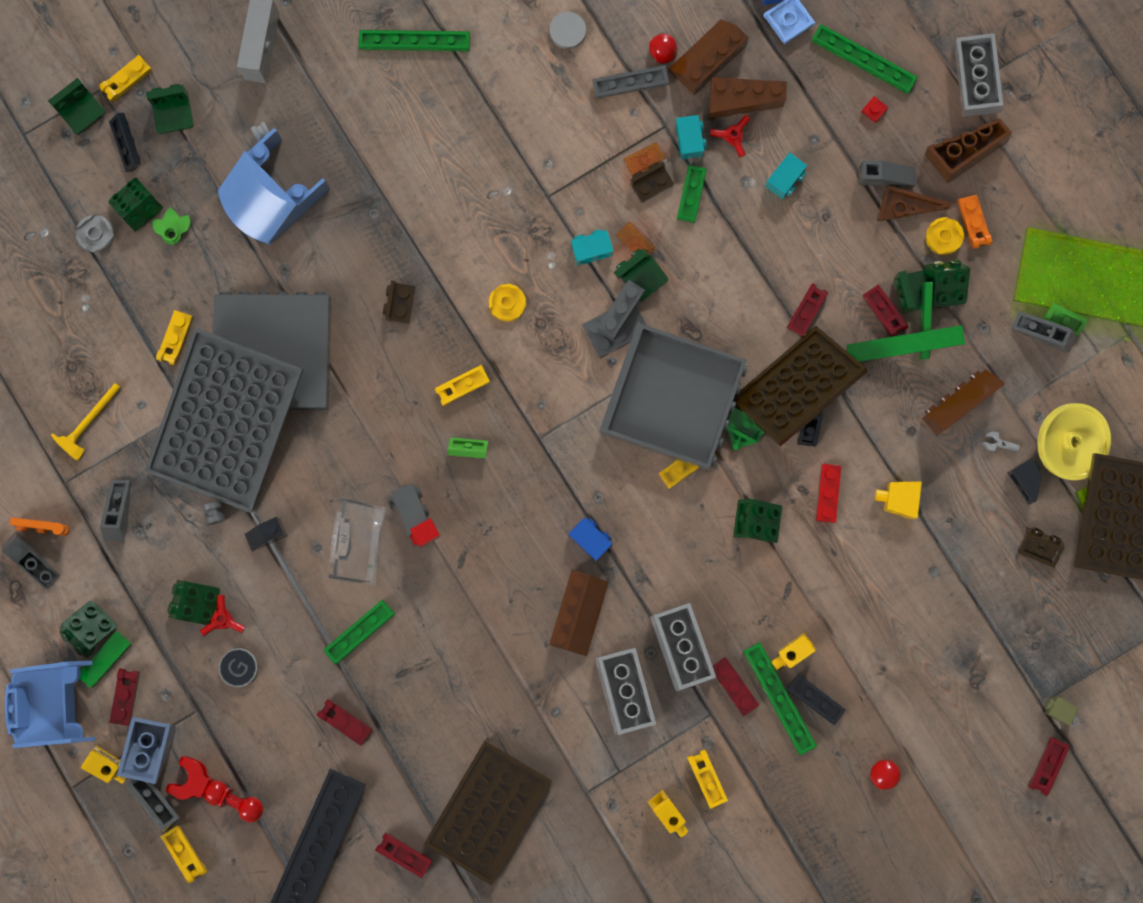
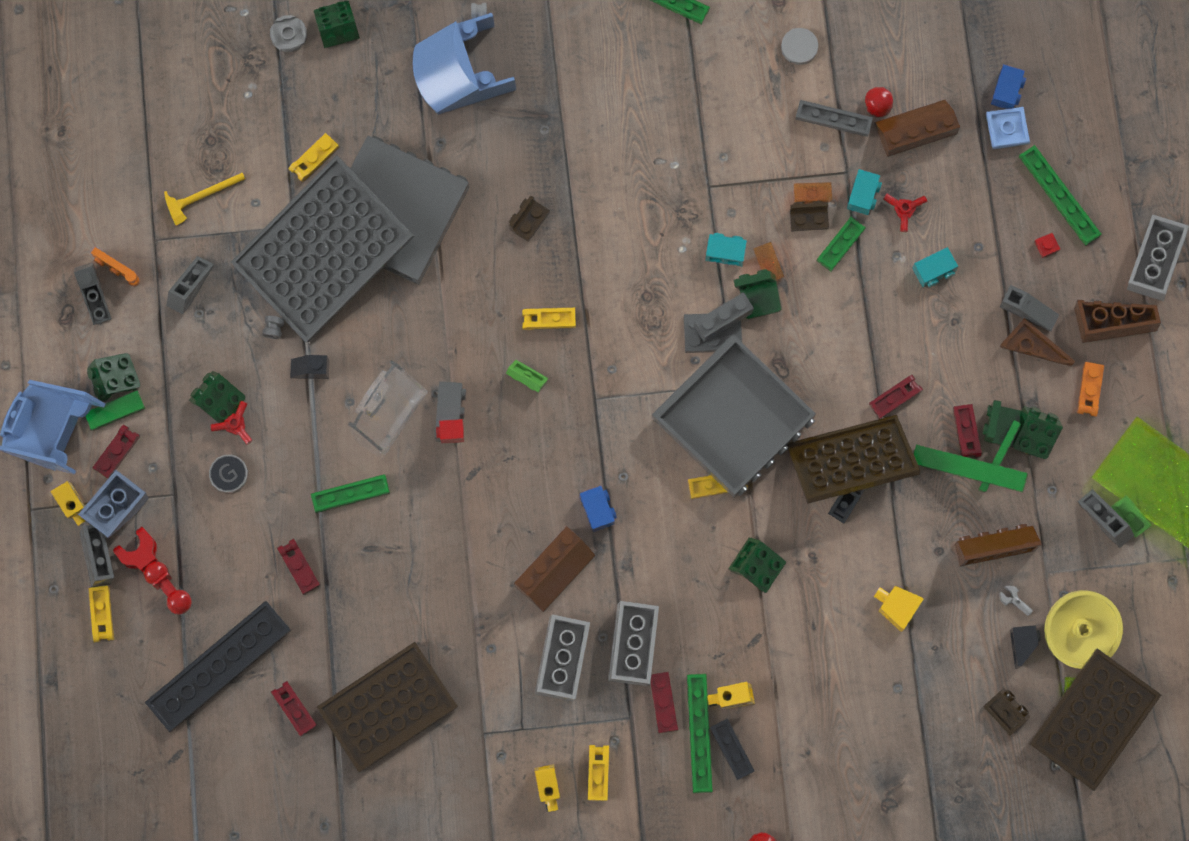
camera: 25 degrees right, 5 degrees down
(171, 224) = (359, 55): bright green plate -> none
(507, 302) = (625, 264): yellow tile -> none
(742, 430) = (783, 476): green slope -> none
(743, 96) = (931, 178): reddish brown wedge -> none
(828, 493) = (834, 570): red plate -> none
(944, 236) = (1056, 389): yellow tile -> none

